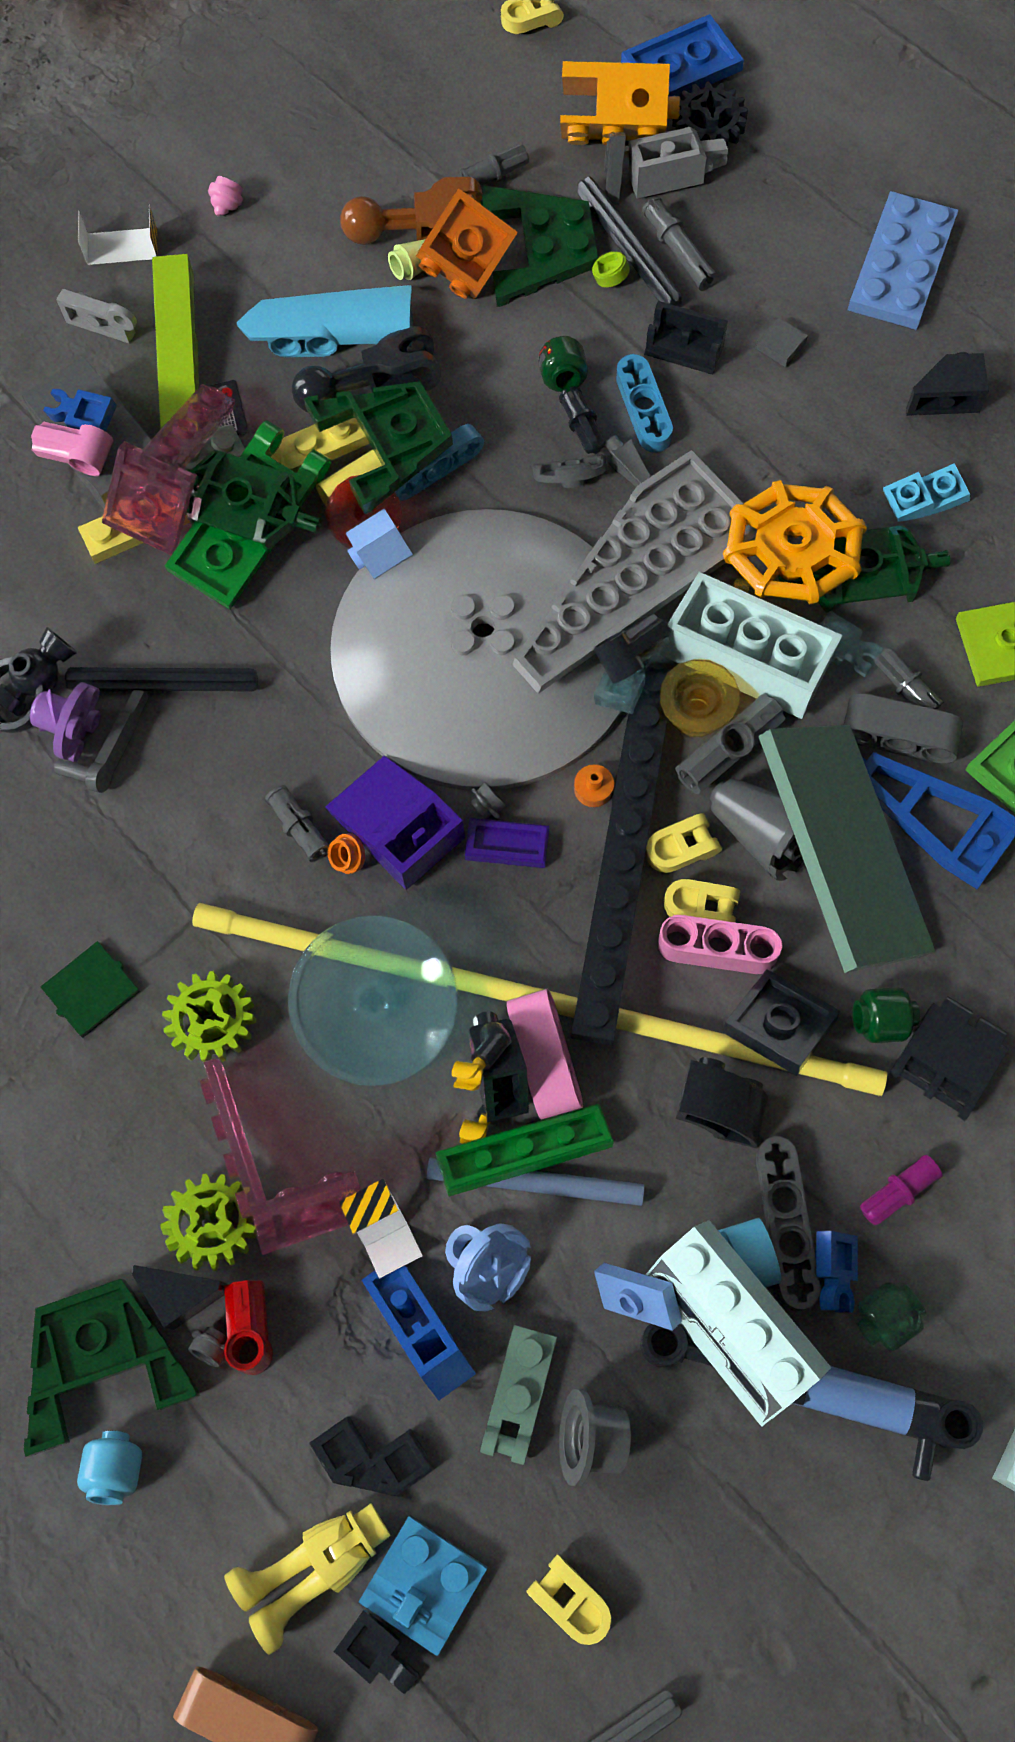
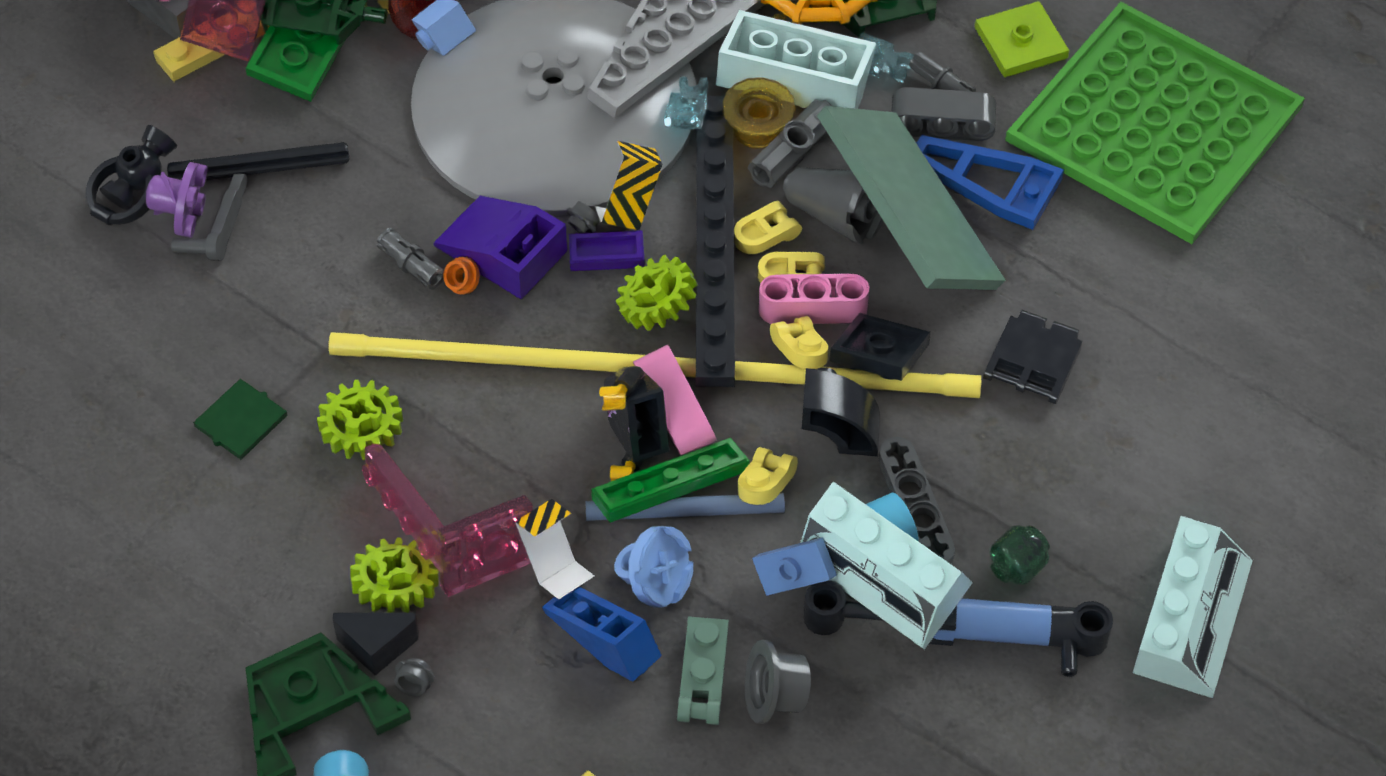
camera: 15 degrees left, 15 degrees down
(246, 1322) = (445, 654): red piece -> none
(353, 1465) = (595, 750): black tile -> none
(373, 1000) = (510, 380): clear light blue dish -> none
(545, 781) = (632, 187): none -> sticker
(552, 909) = (656, 292): none -> lime gear
(594, 785) = (676, 196): orange tile -> none
(618, 1175) = (762, 486): none -> light yellow plate
(626, 650) = (691, 72): black piece -> none
(698, 1012) = (806, 350): none -> light yellow plate
(838, 1265) = (966, 524): blue plate -> none
(885, 1015) = (970, 330): dark green head -> none
(901, 1190) = (1011, 463): magenta axle -> none

